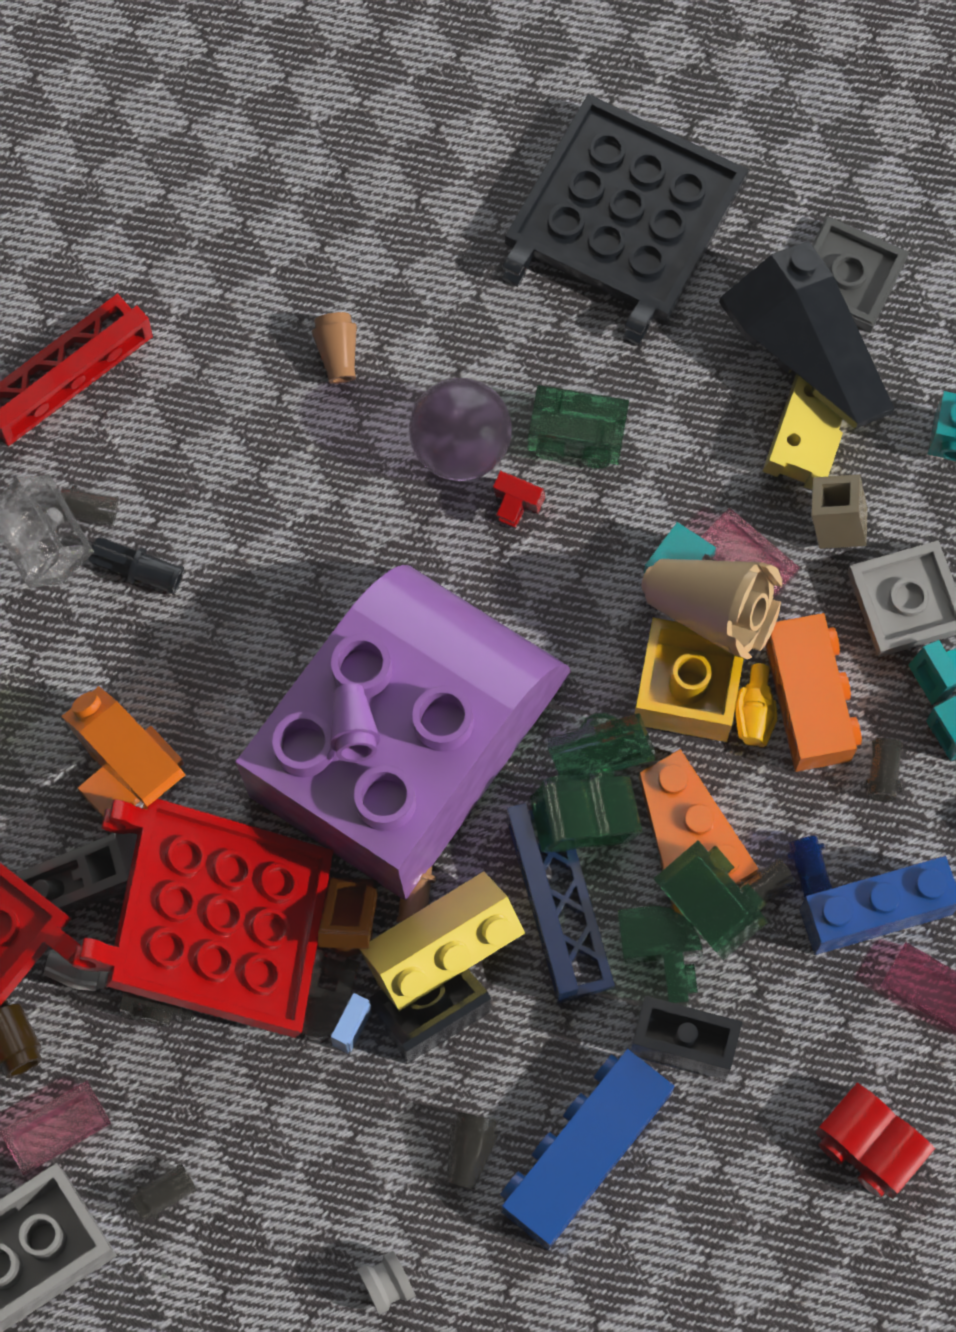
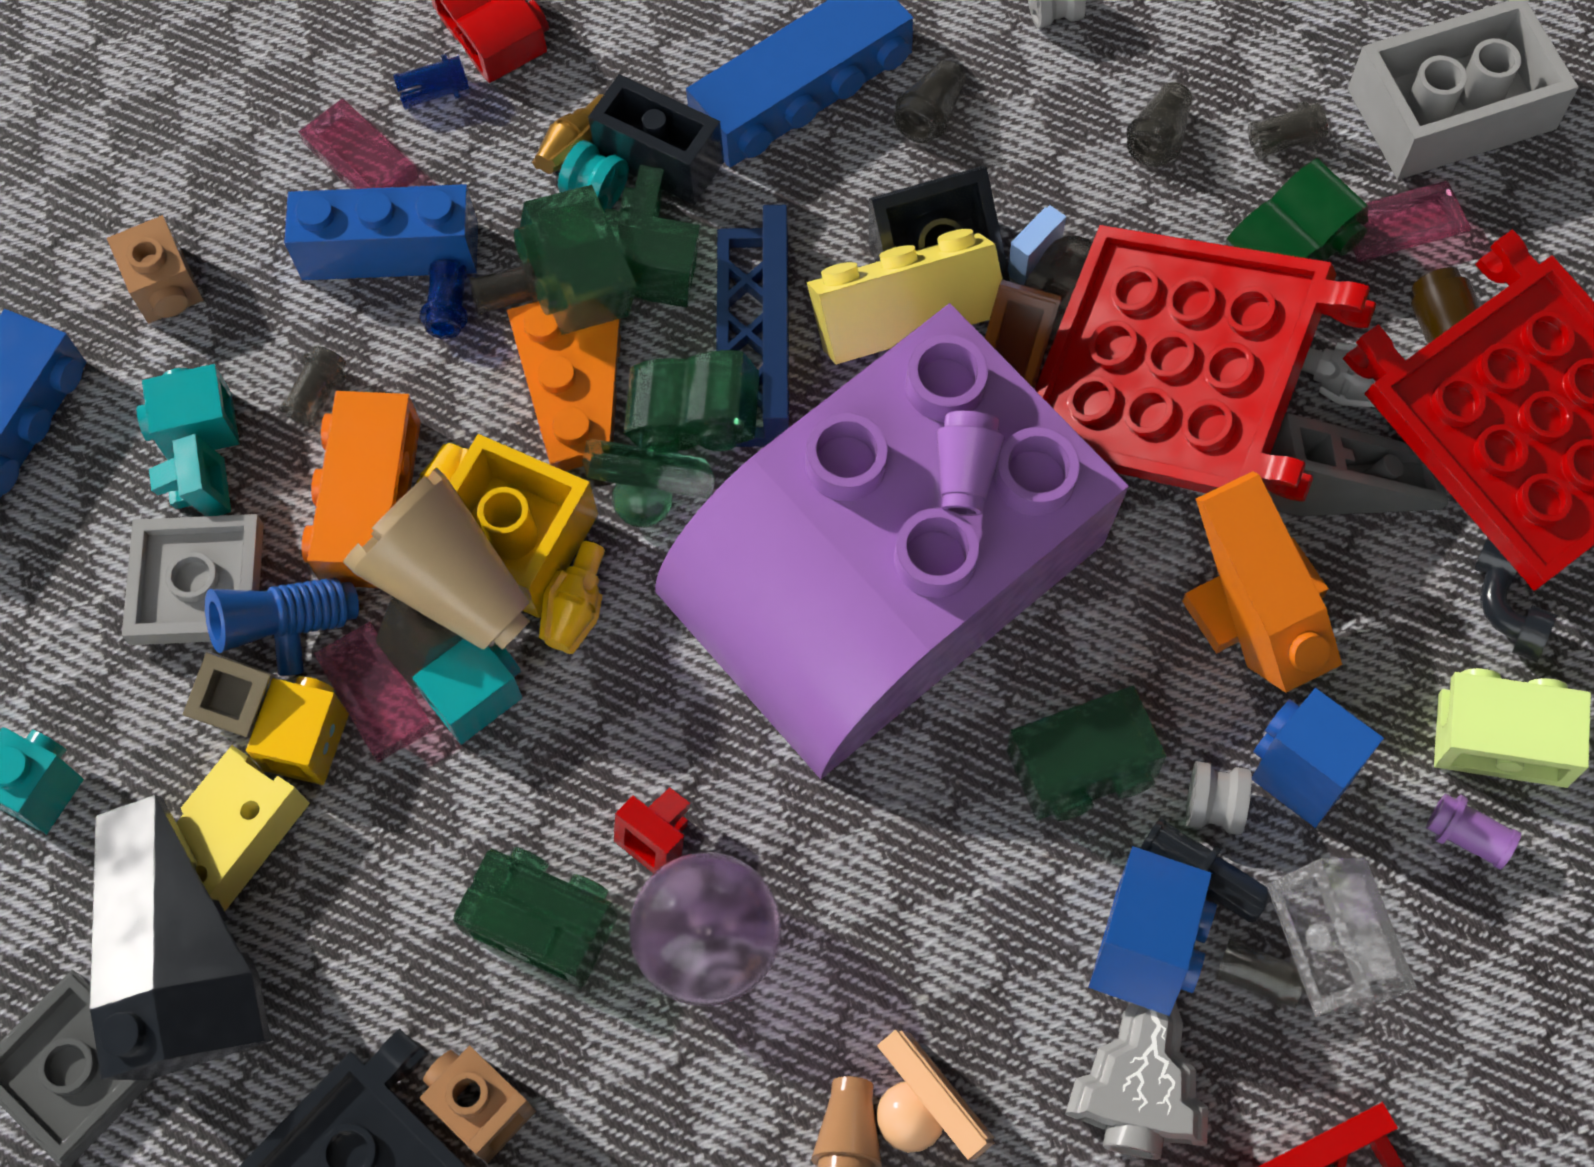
camera: 160 degrees left, 5 degrees down
(73, 639) = (1313, 755): none -> blue brick
(135, 612) = (1218, 798): none -> light grey wheel
(139, 1082) = (1306, 217): none -> dark green brick
(155, 419) = (1142, 1088): none -> light grey rock
(164, 501) = (1153, 932): none -> blue brick
(232, 619) = (1086, 755): none -> clear green brick
(269, 1171) = (1160, 127): none -> clear smoke cone
(290, 375) = (925, 1103): none -> light nougat tile
(577, 322) = (492, 1119): none -> medium nougat brick
(627, 648) = (572, 601): none -> yellow piece
(731, 999) = (588, 167): none -> teal wheel
(761, 1041) = (563, 136): none -> pearl gold piece
(786, 507) = (298, 729): none -> yellow brick
(830, 578) = (283, 610): none -> blue piece
(898, 1068) = (435, 79): none -> clear blue pin

